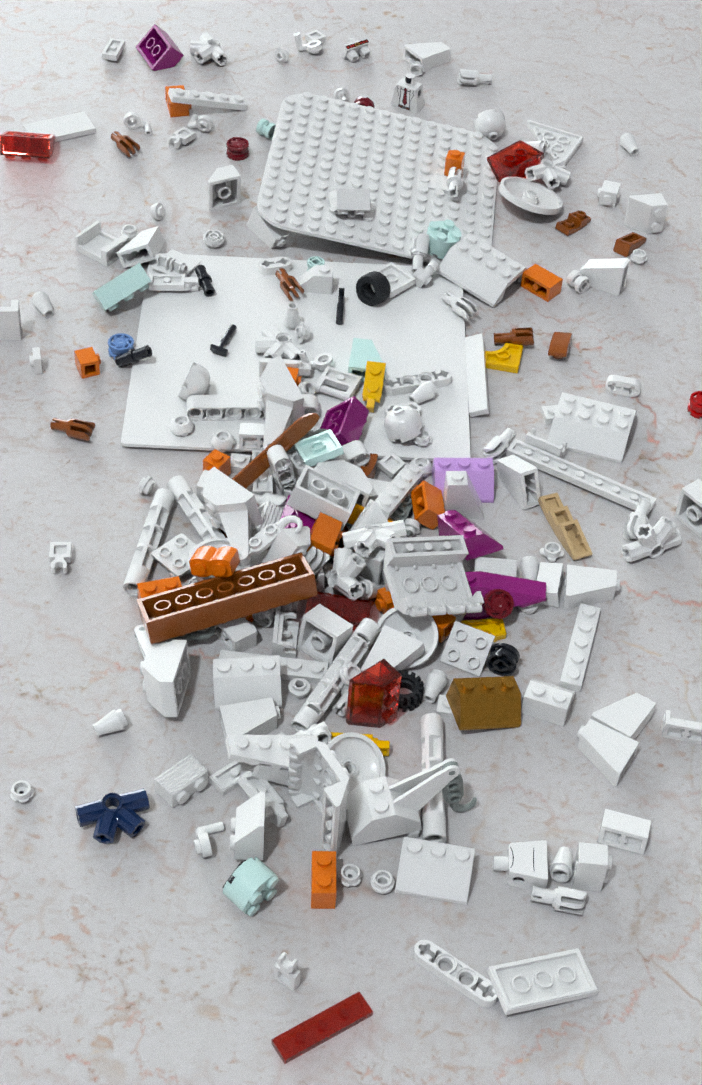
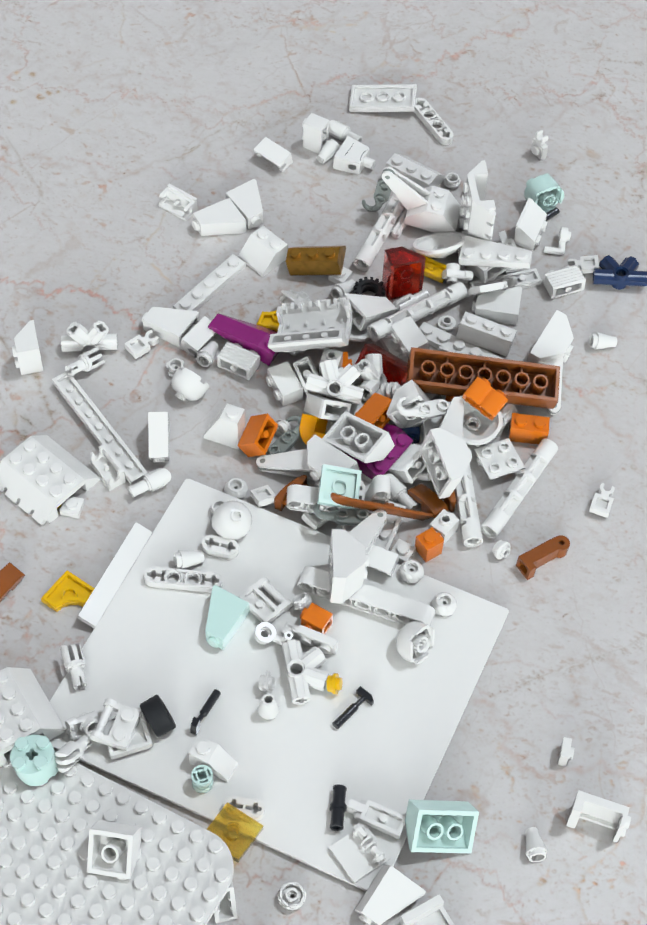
camera: 155 degrees left, 10 degrees up
(74, 428) = (550, 642): dark orange arm -> none
(87, 362) = (511, 730): orange brick -> none
(105, 493) = (542, 554): none -> dark orange leg
(120, 344) = (467, 744): medium blue wheel -> none
(133, 356) = (461, 713): black pin -> none
(161, 817) = (586, 263): none -> white plate
(247, 346) = (334, 683): none -> yellow plate
(267, 716) = (487, 288): none -> white tile
(274, 243) = (235, 830): none -> clear yellow plate
(288, 283) = (245, 763): dark orange arm -> none
(321, 1027) = (527, 122): clear red tile -> none
(323, 880) = (495, 184): orange brick -> none
(346, 420) = (292, 541): magenta slope -> none
(349, 671) = (409, 298): white plate -> none
(373, 383) = (235, 575): yellow hinge -> none
(393, 272) = (122, 727): none -> white plate
(399, 489) = (280, 449): white plate -> none
(476, 539) = (242, 385): magenta slope -> none
(478, 469) = (207, 458): lavender slope -> none
(498, 603) = (259, 319): dark red wheel -> none
(503, 659) = (280, 282): black wheel -> none
(517, 336) = (42, 608): dark orange arm -> none
(524, 530) = (188, 385): none -> white cylinder
(564, 527) = (148, 384): tan slope -> none
(602, 557) = (139, 346): none -> white plate

